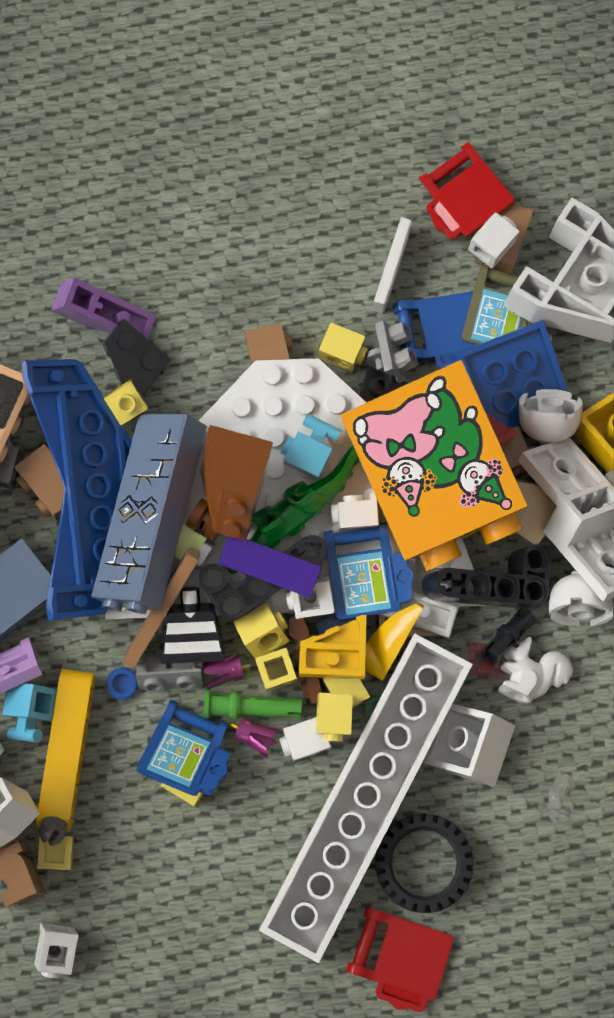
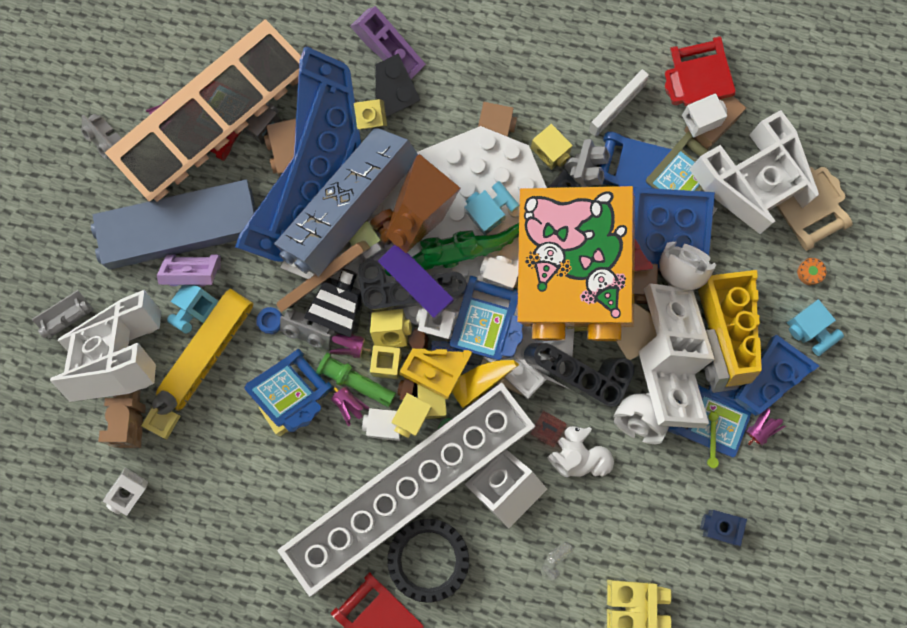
camera: 30 degrees right, 0 degrees up
(508, 636) = (574, 418): black pin -> none

